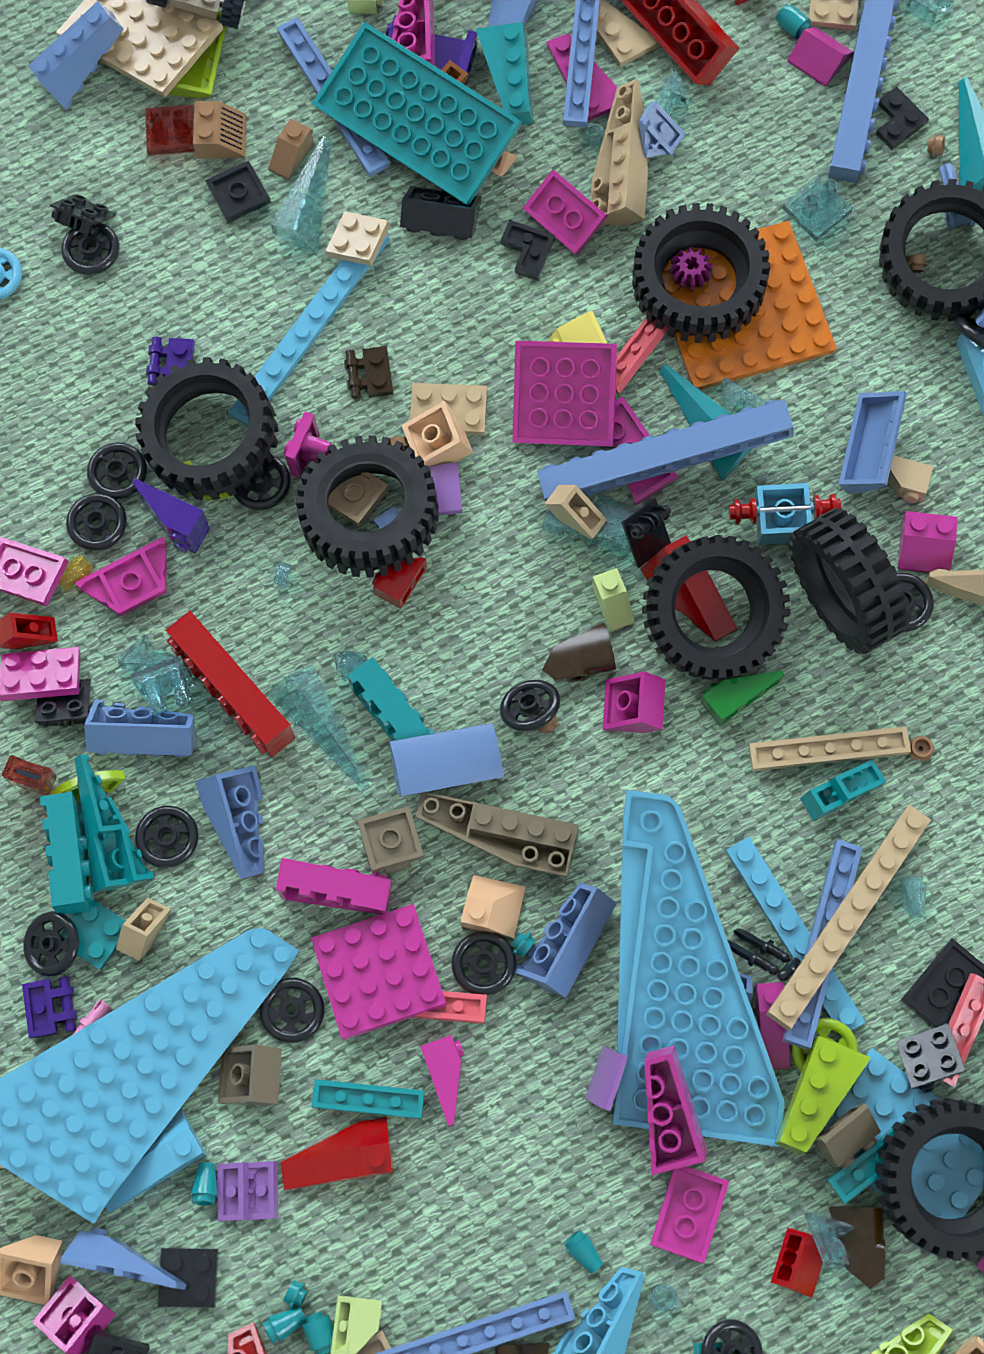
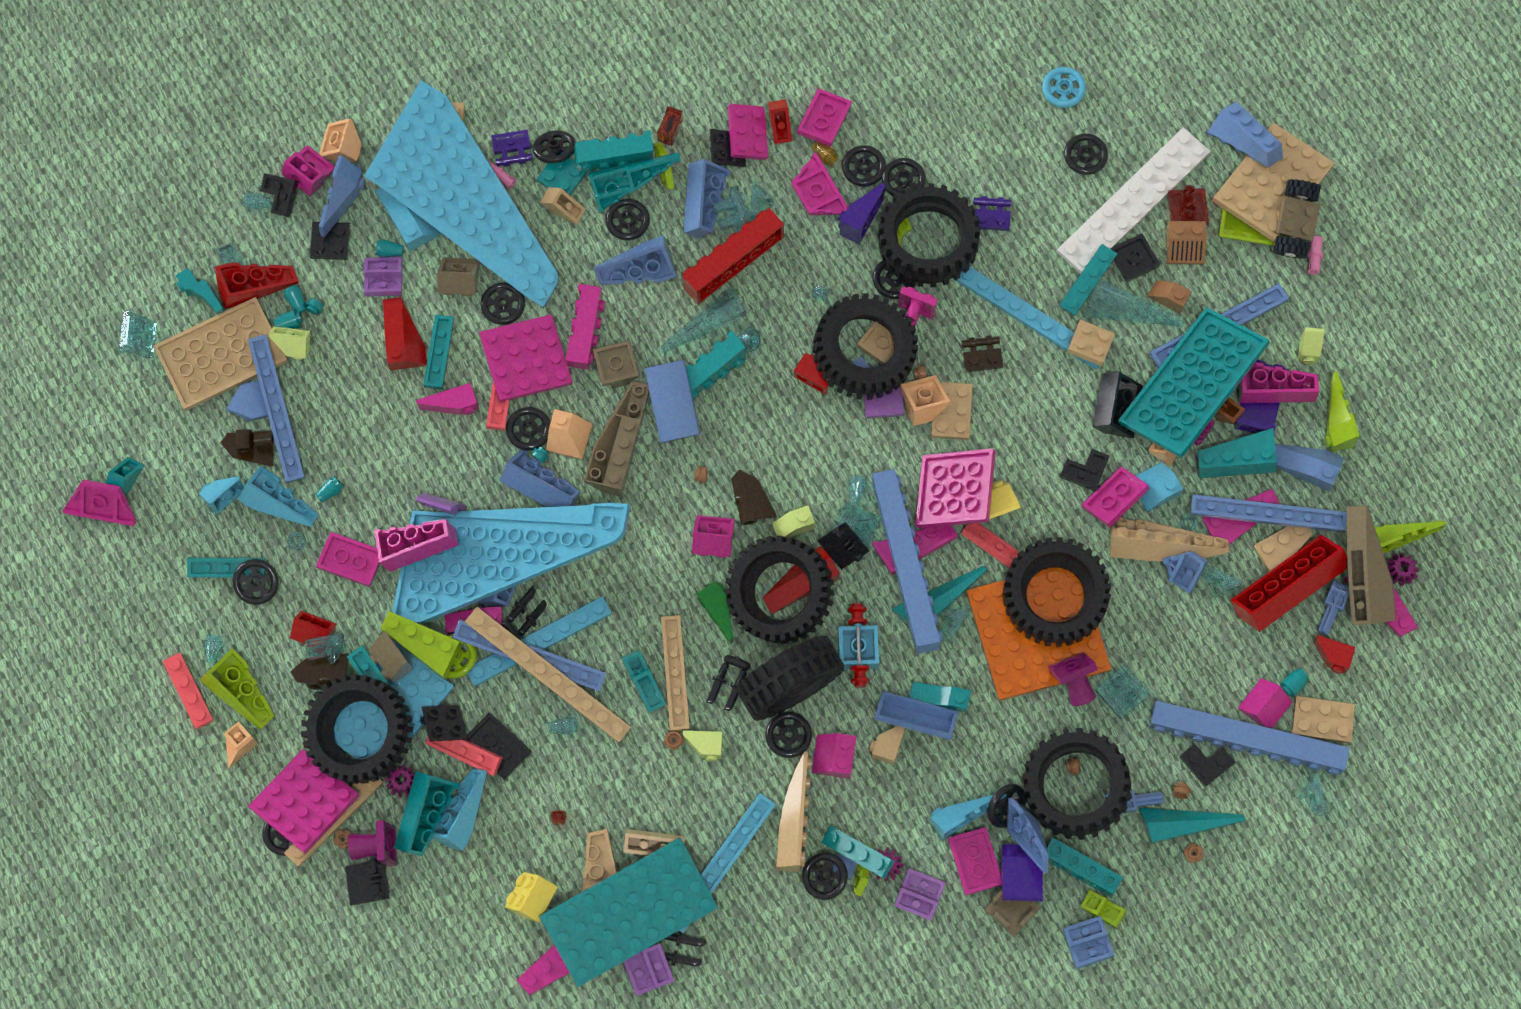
camera: 90 degrees right, 0 degrees up
(80, 214) = (1113, 145): black hinge -> none
(159, 194) = (1134, 199): none -> white plate
(269, 242) = (1088, 280): none -> teal plate
(529, 705) = (713, 461): black plate -> none
(541, 158) = (1162, 486): none -> medium azure slope
(575, 510) = (859, 493): tan slope -> none
(695, 261) = (1067, 592): magenta gear -> none
(805, 252) = (1074, 673): none -> magenta plant
(834, 692) = (735, 661): none -> black piece
(839, 416) = (946, 697): none -> teal slope
(925, 703) = (706, 743): none -> yellowish green slope

